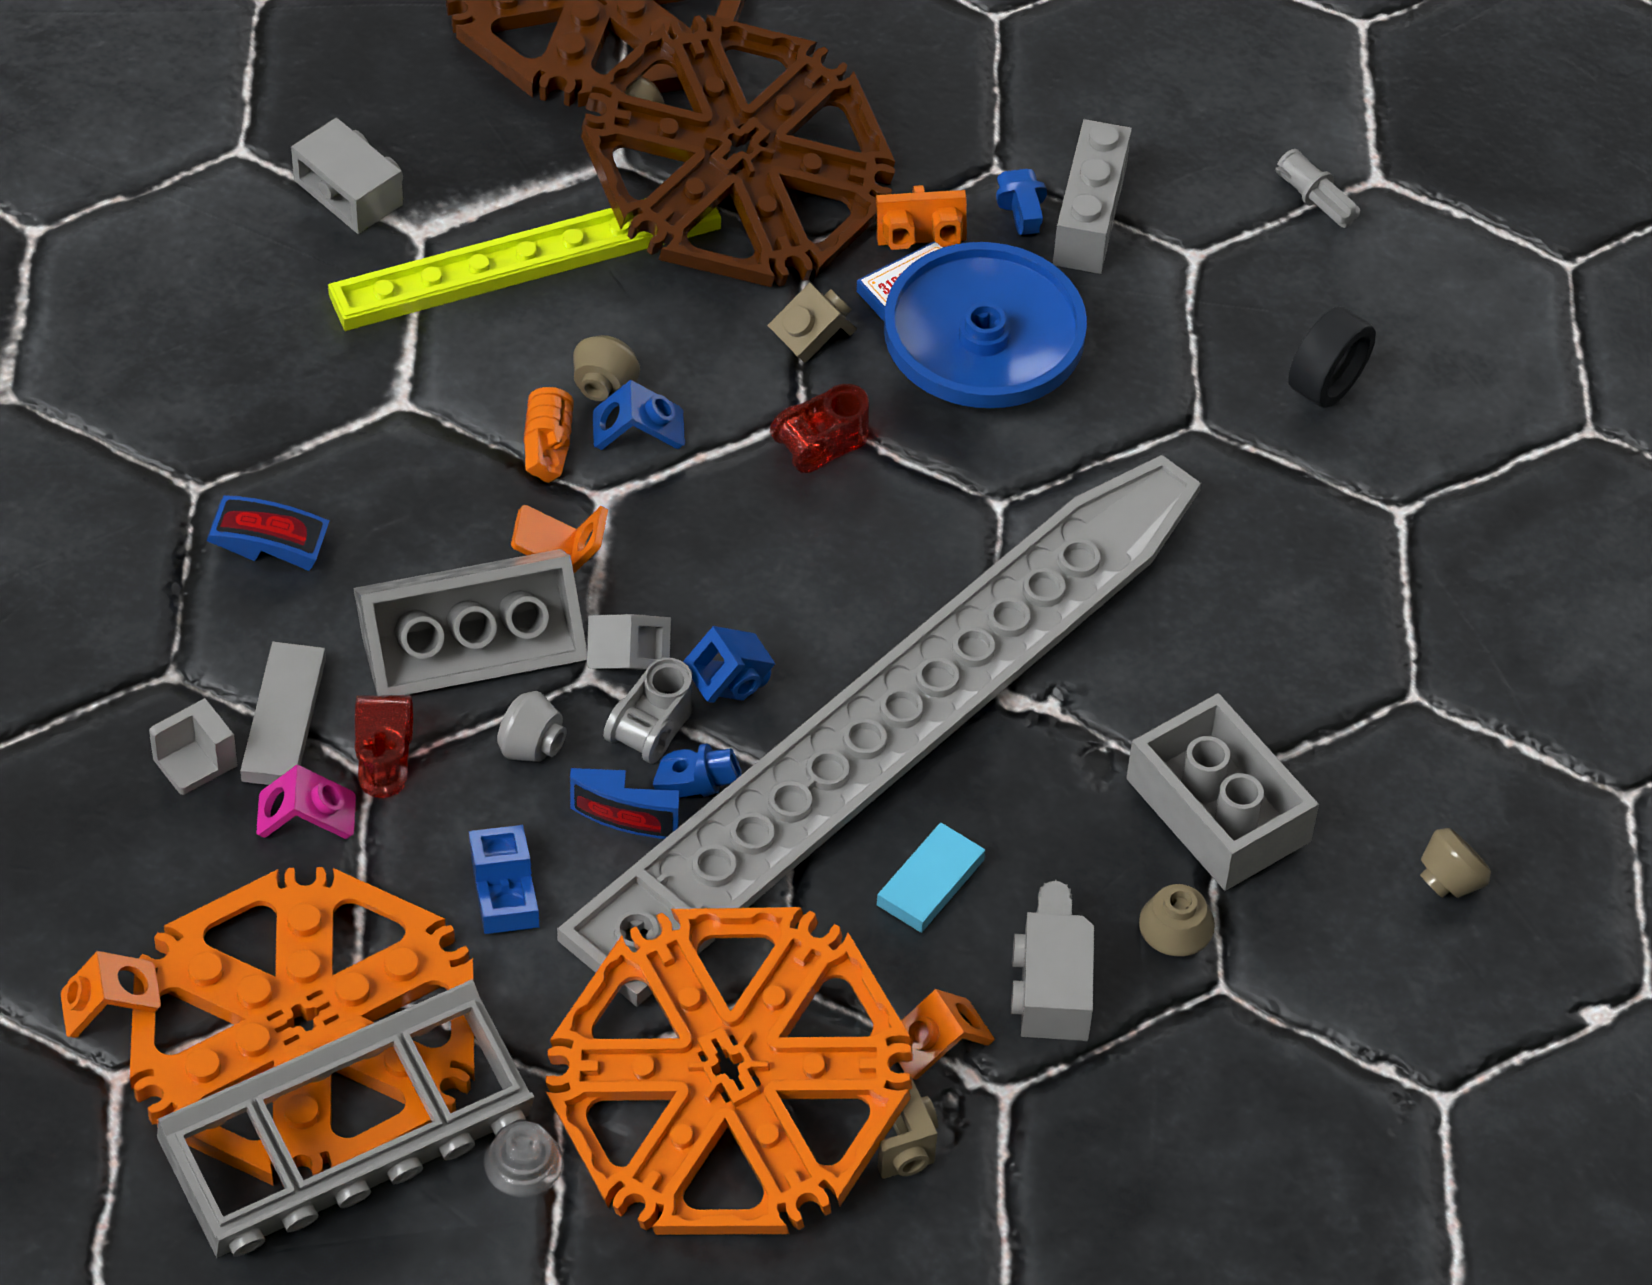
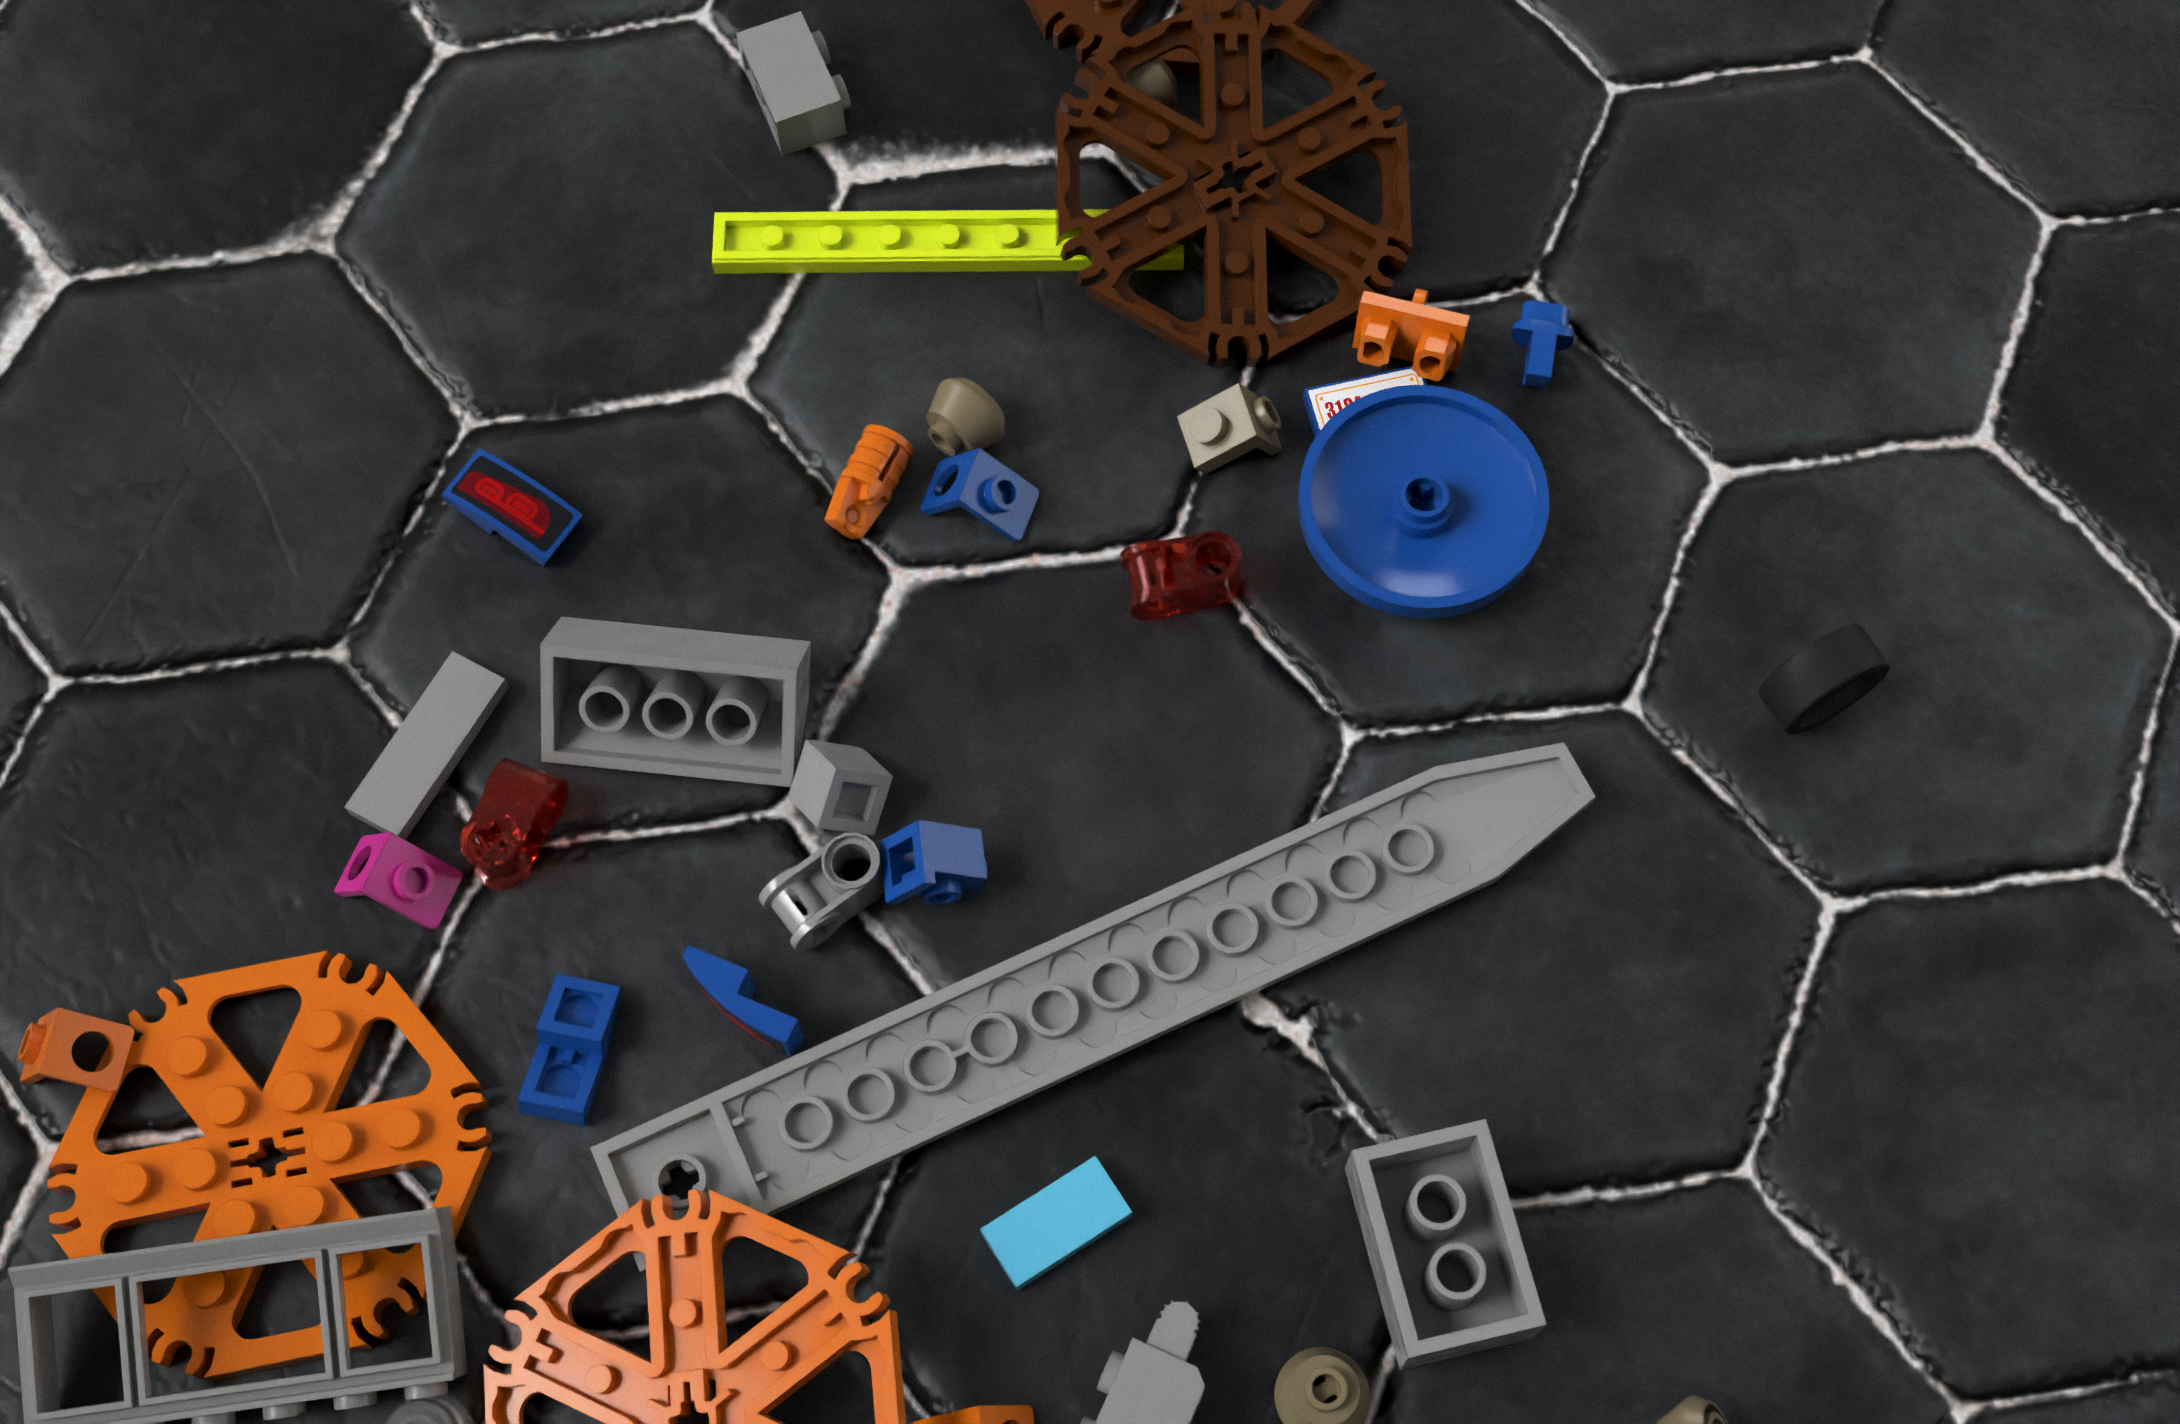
camera: 25 degrees right, 15 degrees up
(193, 746) = (307, 759): light grey panel -> none
(531, 729) = (678, 866): light grey cone -> none
(540, 533) = (809, 614): orange bracket -> none
(697, 771) = (849, 993): blue piece -> none
(1092, 196) = (1623, 364): light grey brick -> none
(1317, 187) = (1904, 432): light grey axle -> none

